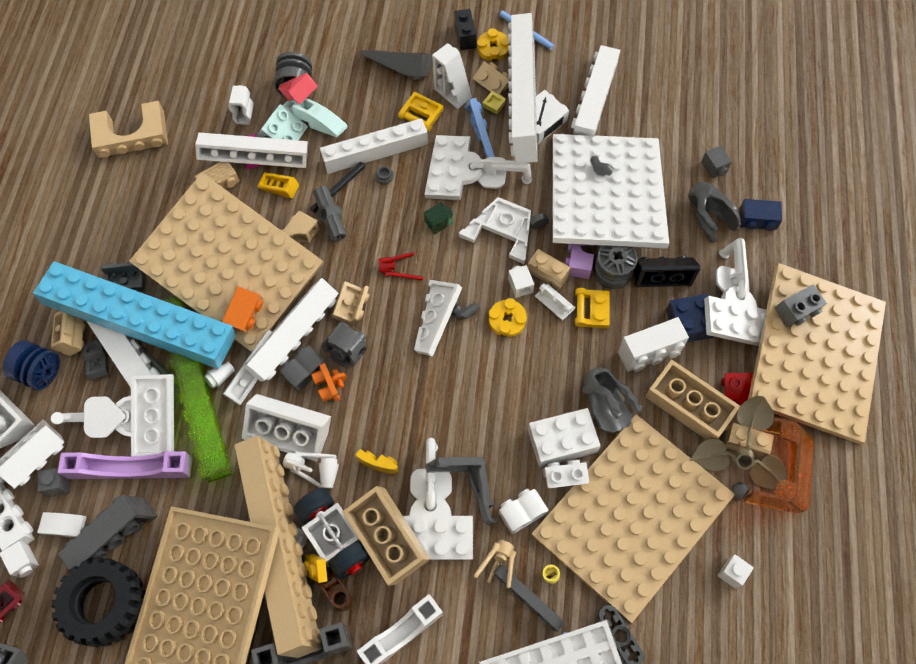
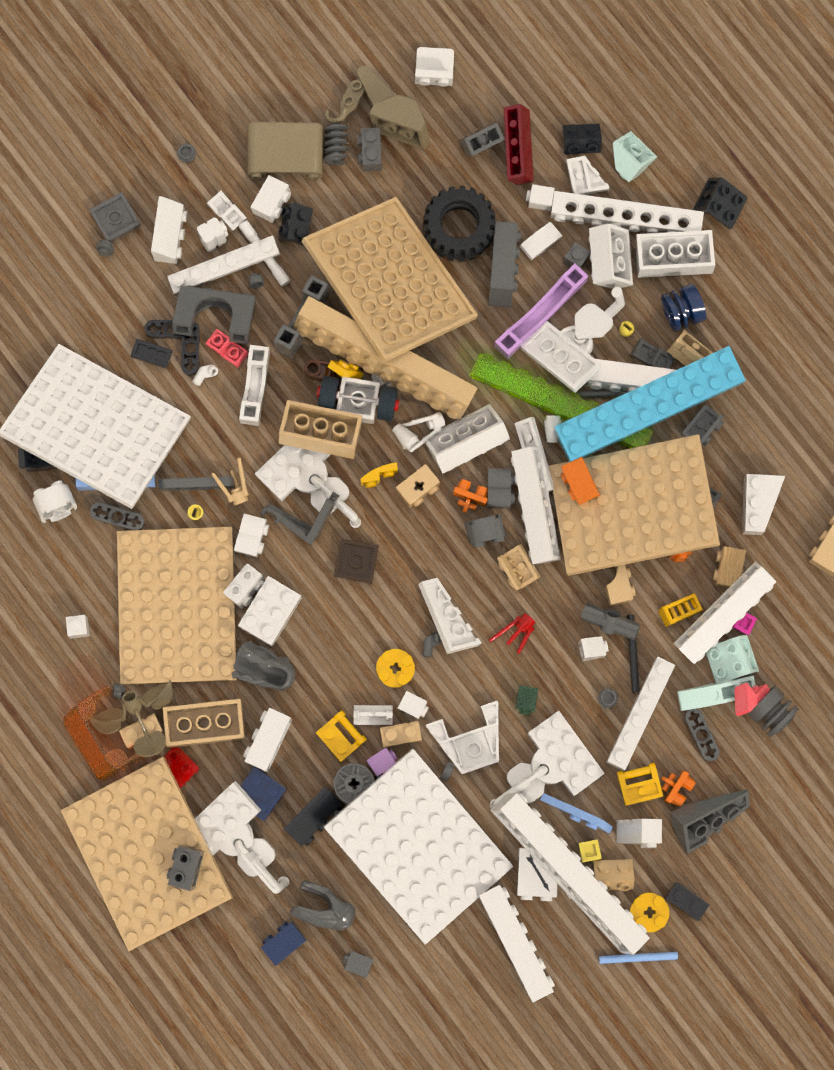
camera: 130 degrees right, 15 degrees up
(89, 393) = (624, 331): none -> light yellow hinge
(150, 198) = (758, 501): none -> white wedge
(241, 105) = (782, 644): white brick -> none
(350, 99) = (702, 750): none -> dark grey beam
(361, 207) = (592, 648): none -> white slope
(366, 432) = (422, 476): none -> tan brick
(400, 90) = (673, 795): none -> orange hips
(460, 415) = (356, 561): none -> dark brown plate
(599, 167) = (439, 854): dark grey arm -> none

